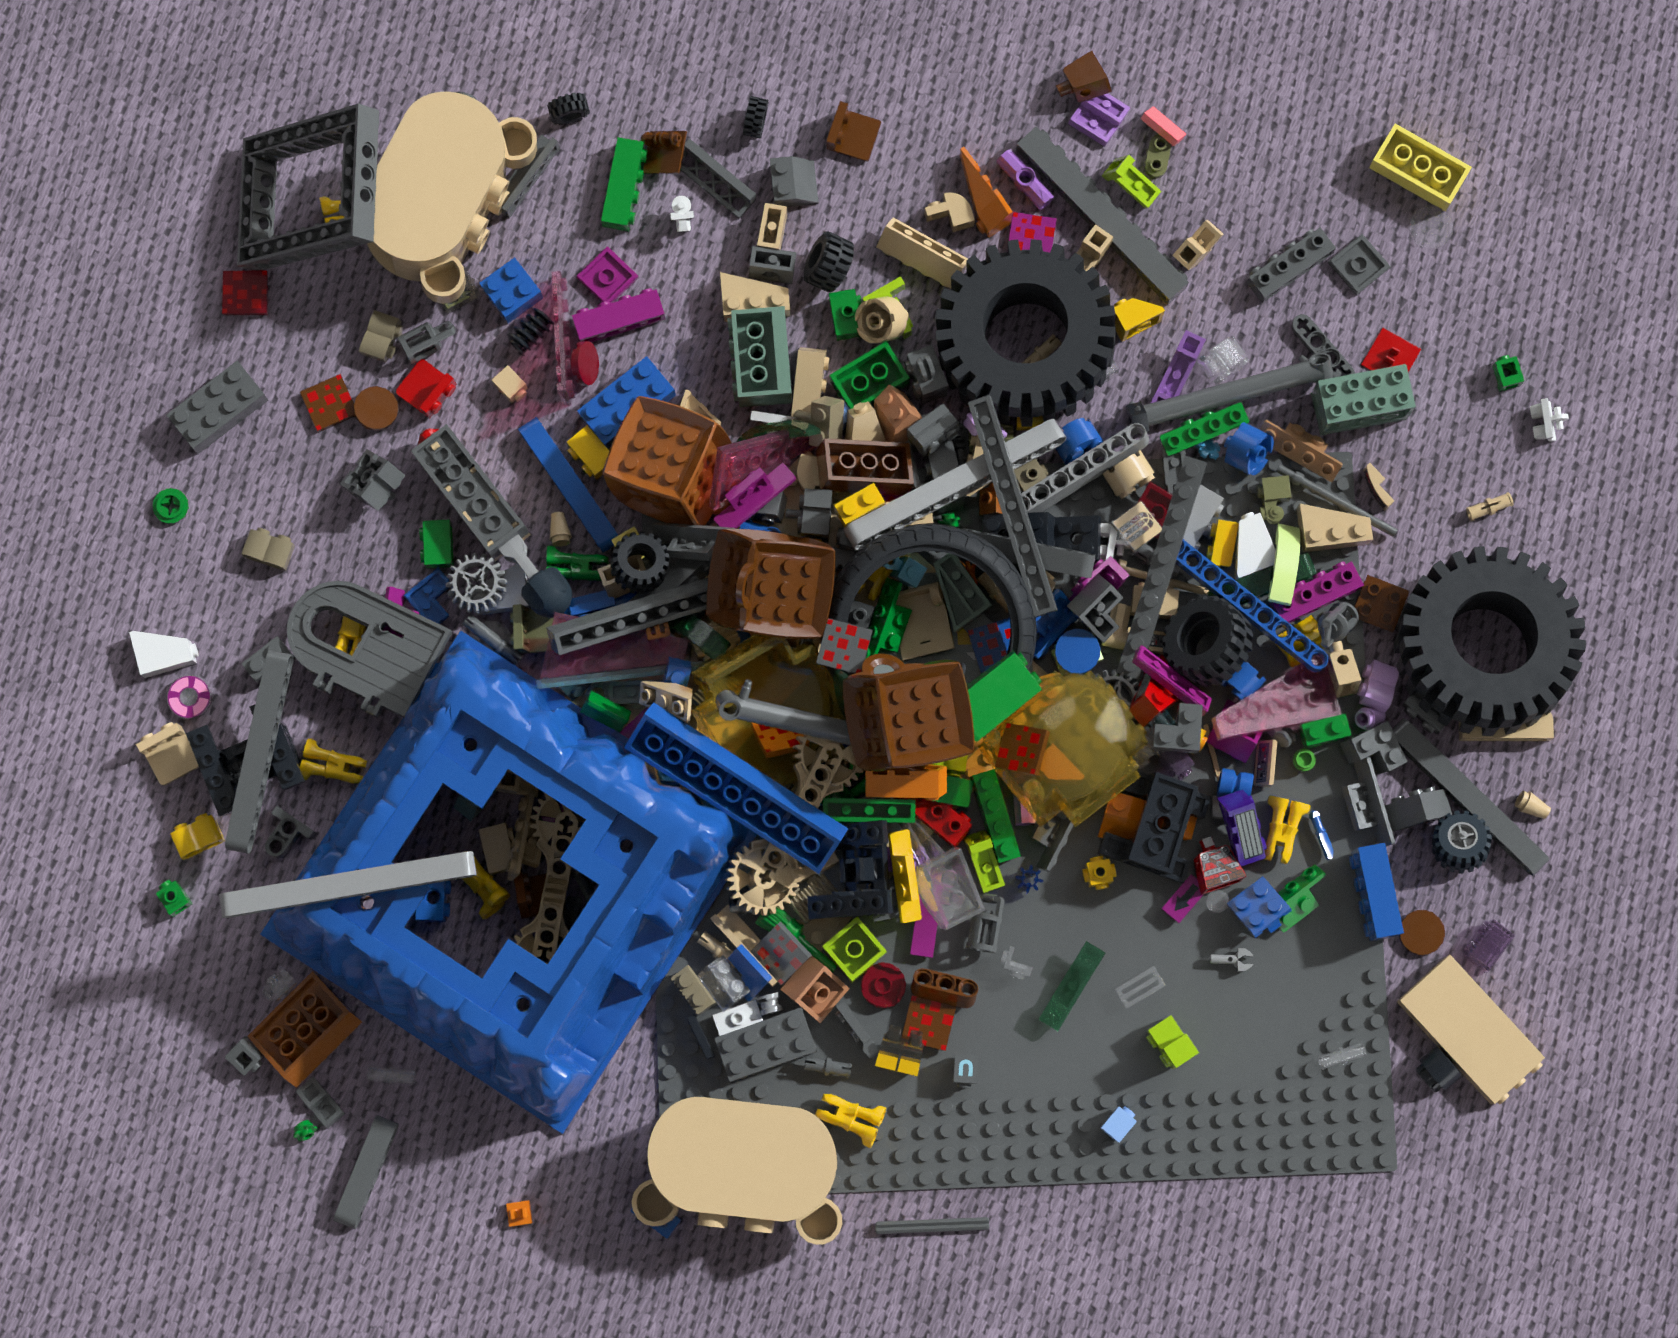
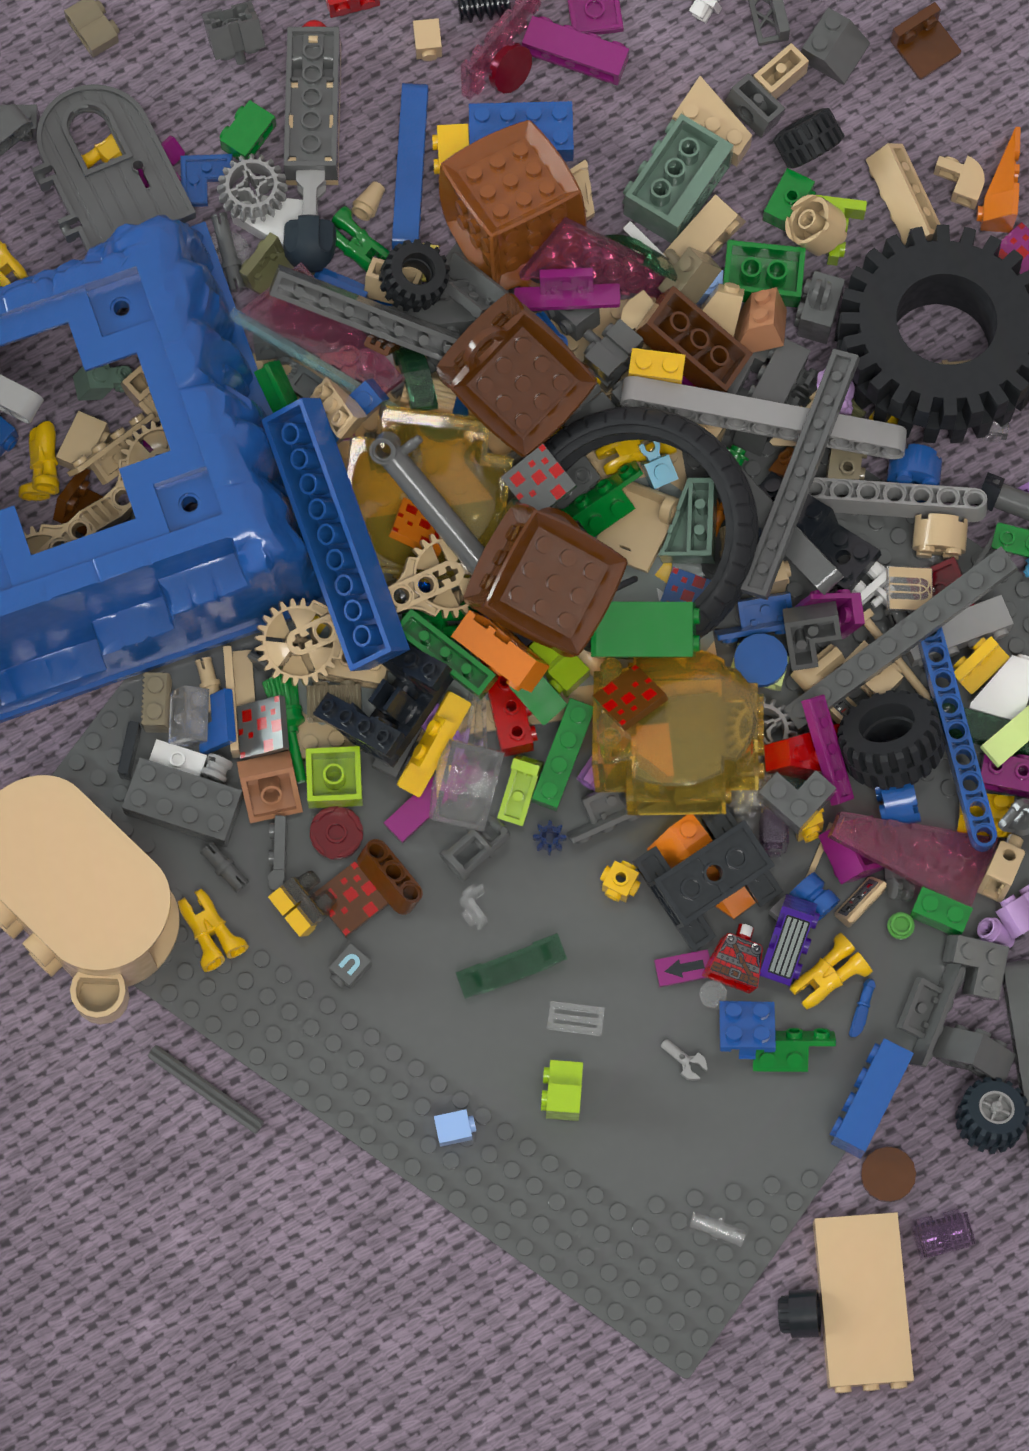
camera: 35 degrees right, 5 degrees down
(933, 430) = (783, 356): dark grey brick -> none

